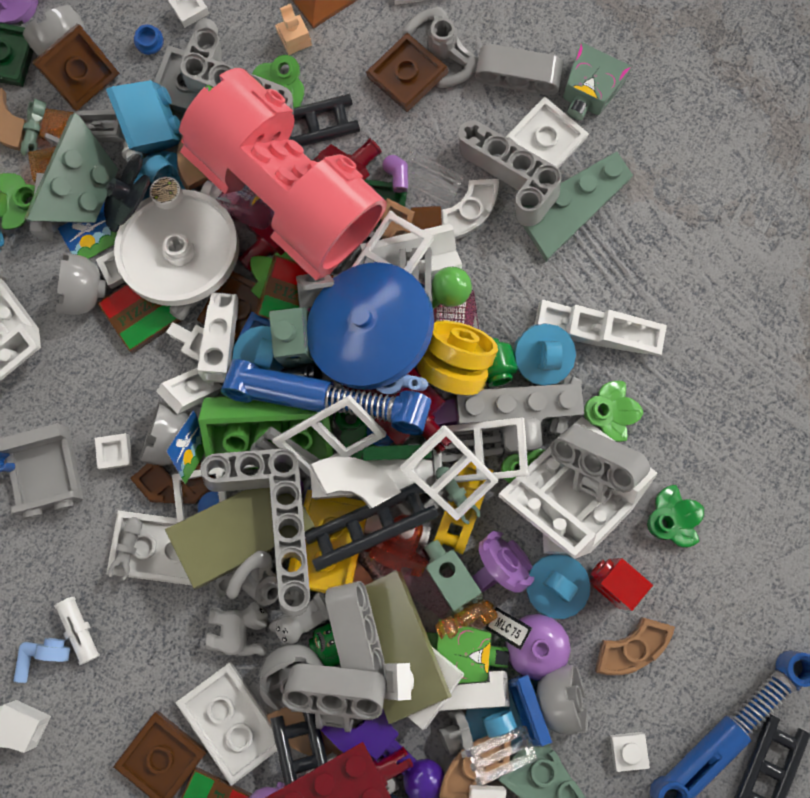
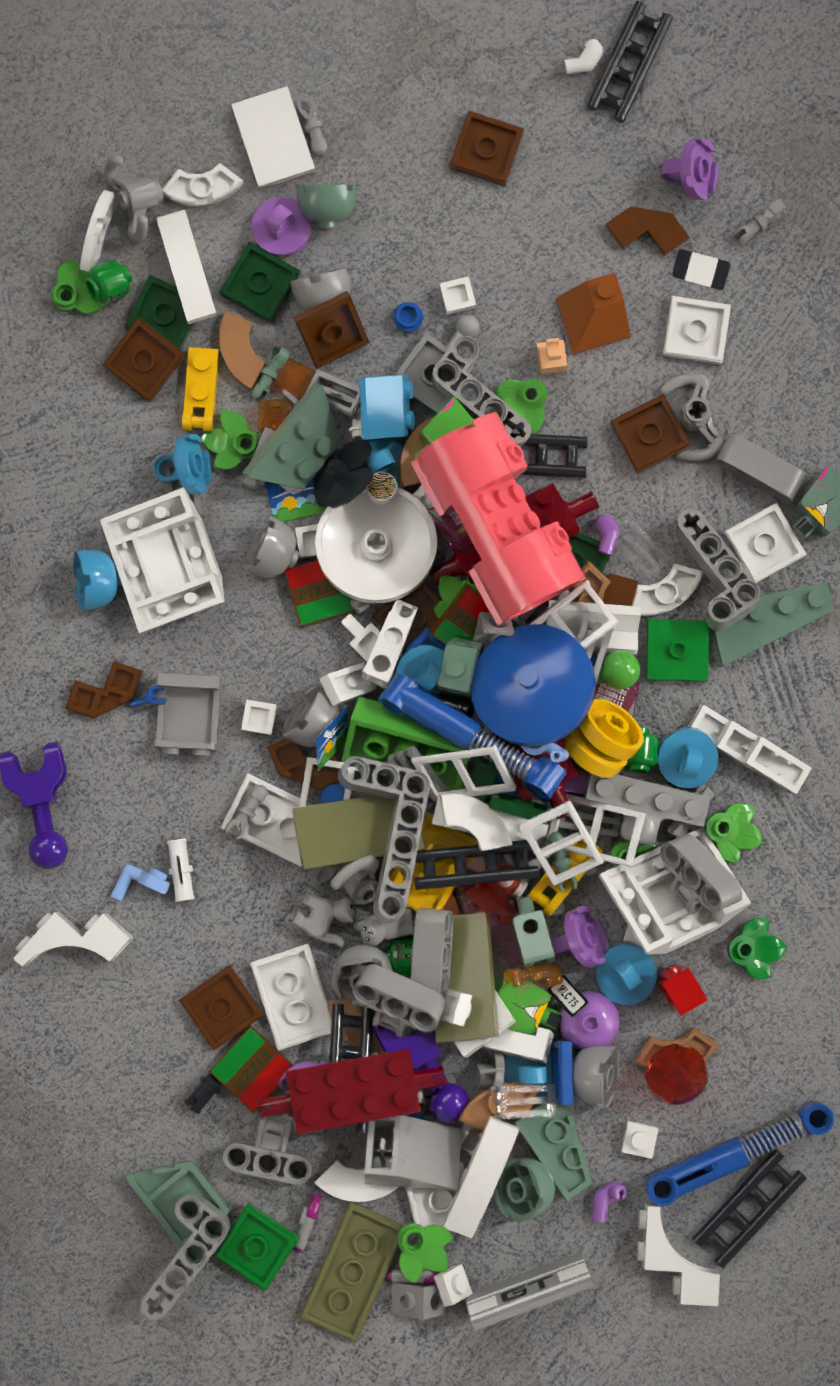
camera: 20 degrees right, 5 degrees up
(499, 258) = (677, 650): none -> green plate
(646, 673) = (676, 1074): none -> clear red tile

